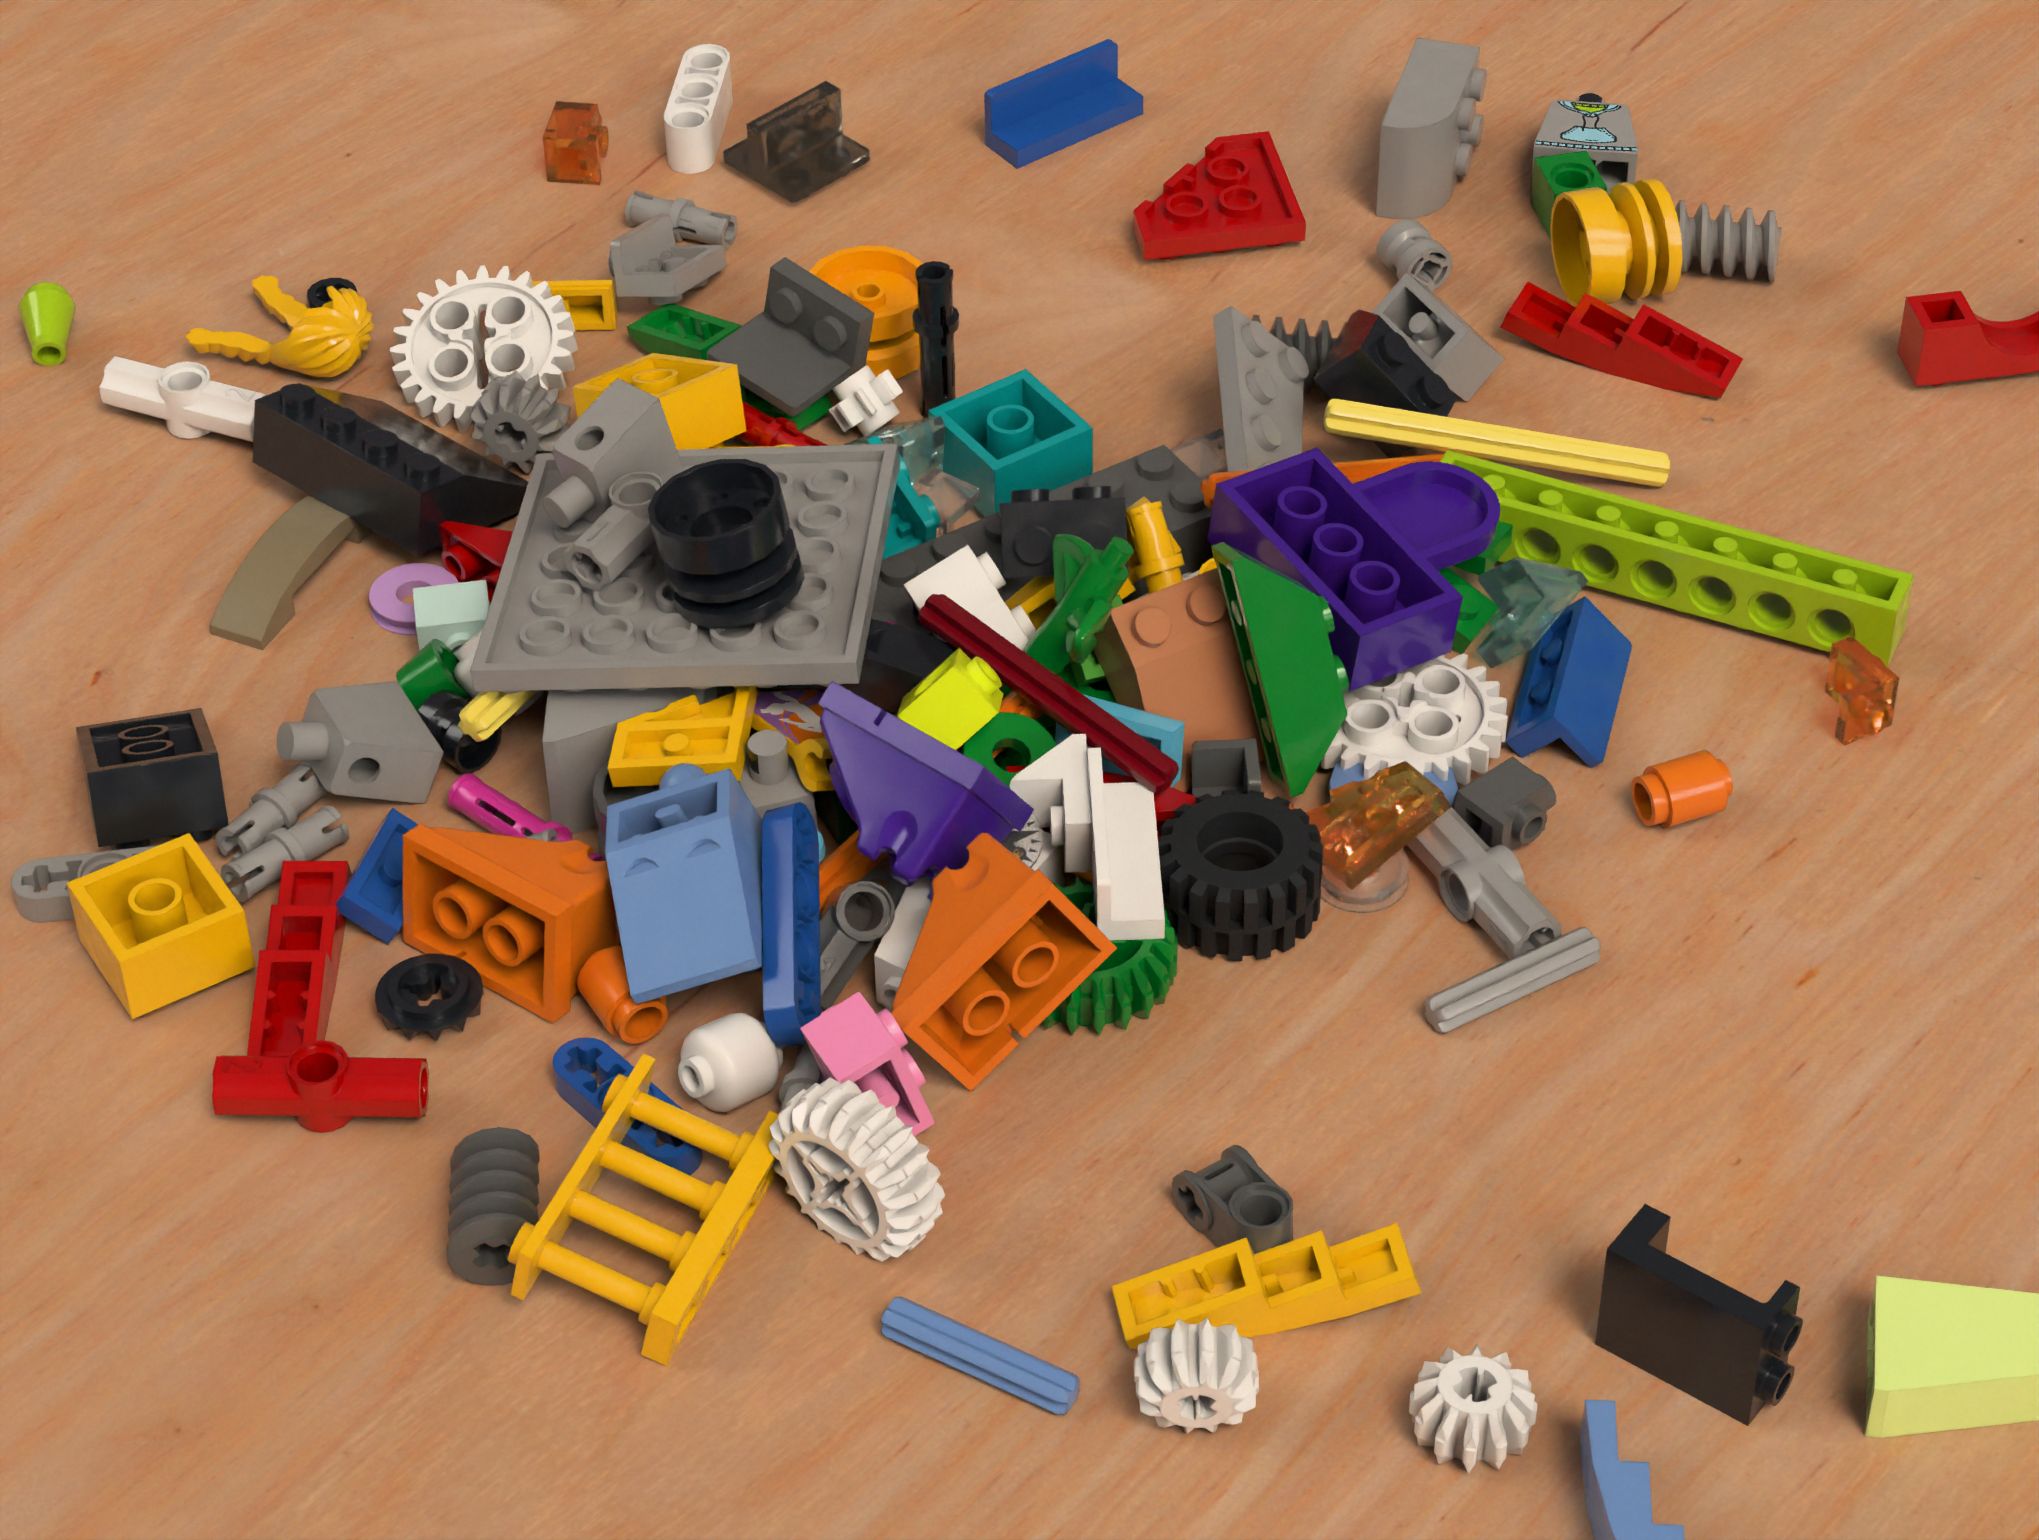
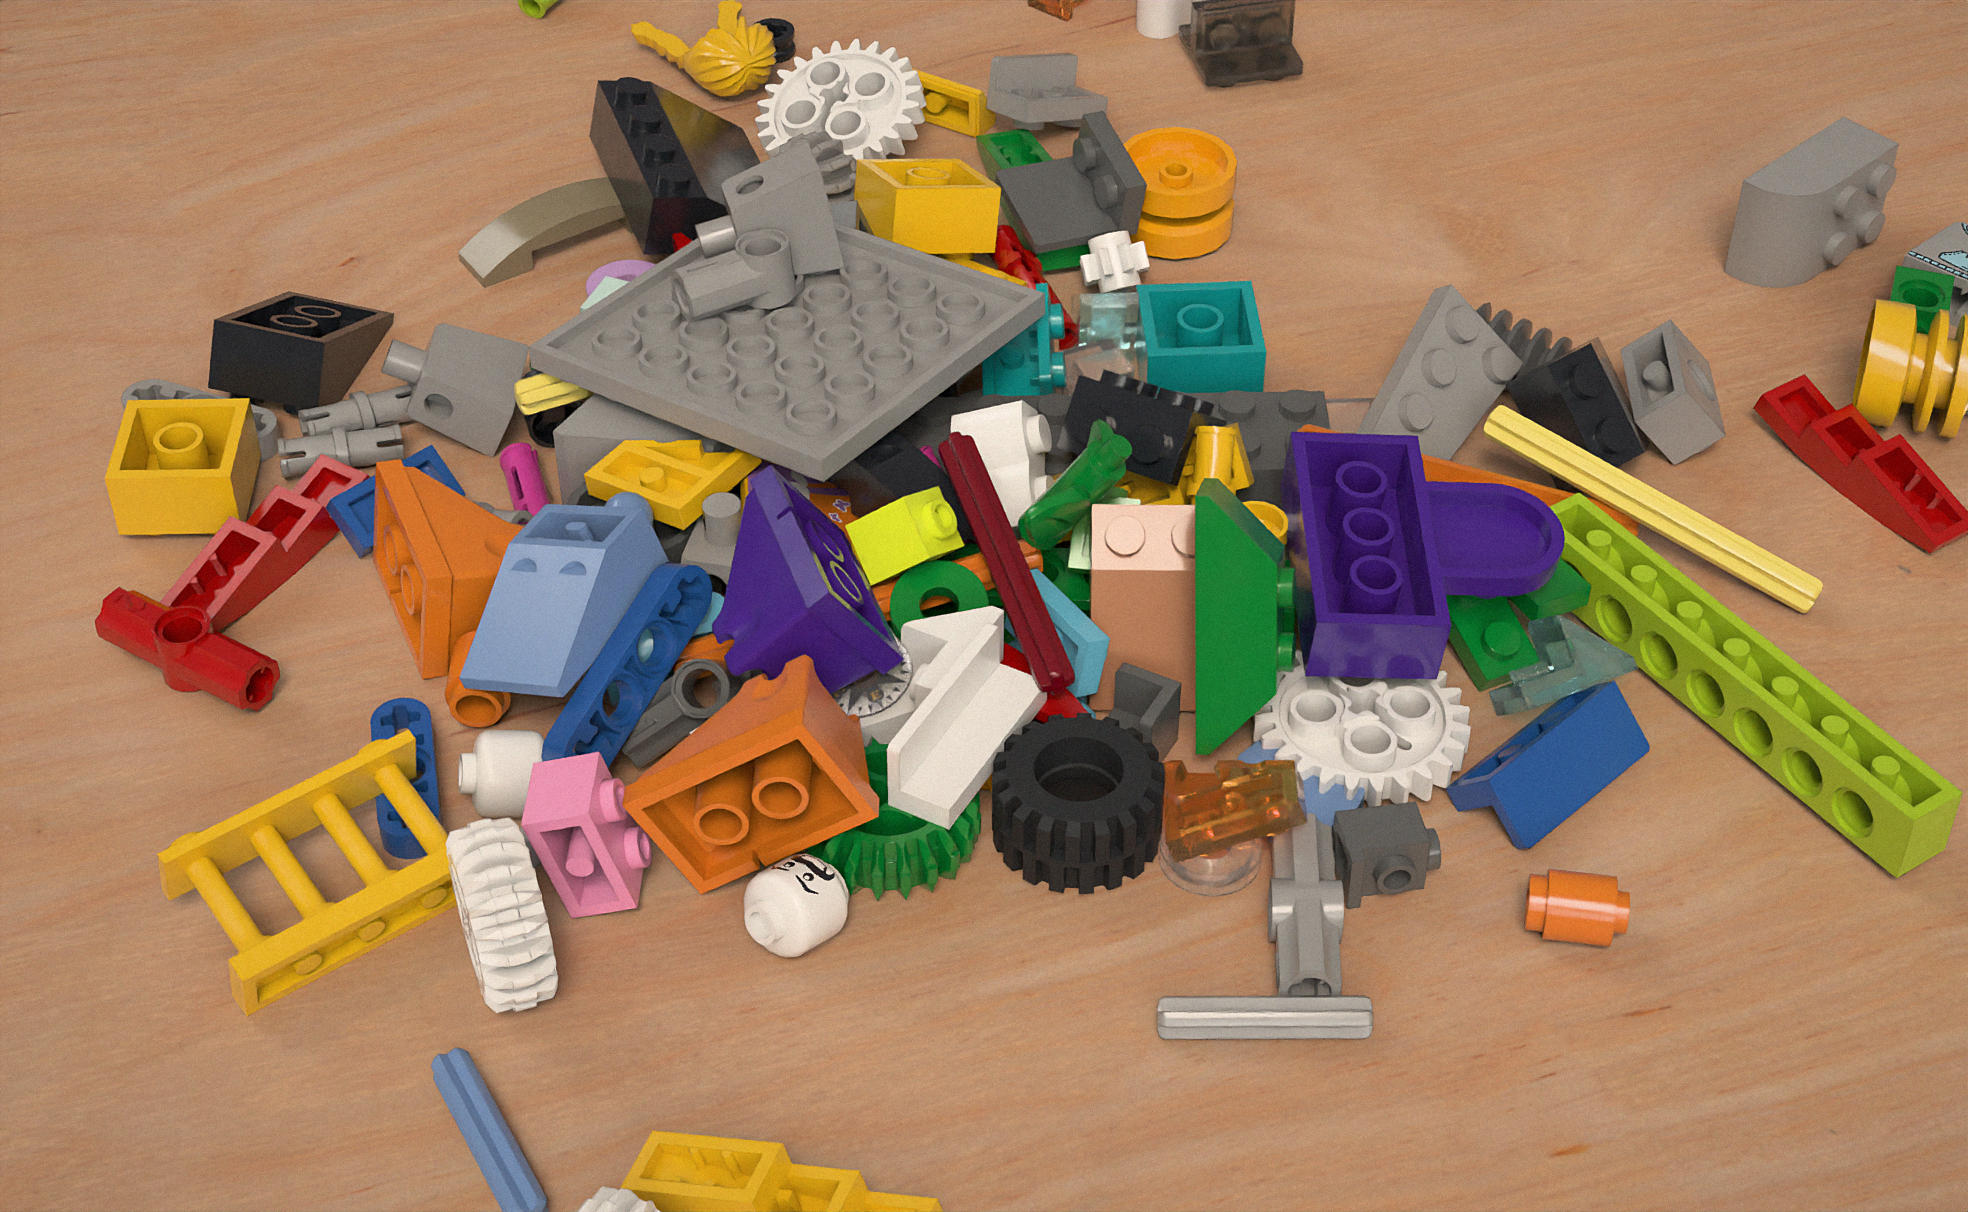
camera: 30 degrees right, 0 degrees up
(181, 397) = (575, 60): white piece -> none
(419, 978) = (347, 595): black gear -> none
(490, 1201) = (223, 785): dark grey piece -> none
(687, 219) = (1102, 69): light grey pin -> none
(726, 543) = (784, 313): black wheel -> none
(935, 323) = (1191, 179): black pin -> none
(1058, 105) = (1499, 79): blue panel -> none
(1078, 1052) = (795, 905): none -> white head
(1222, 203) = (1579, 213): red plate -> none
(1235, 1202) = (819, 1110): dark grey piece -> none
(1410, 249) = (1718, 316): light grey wheel -> none
(1862, 689) = (1844, 893): clear orange bracket -> none

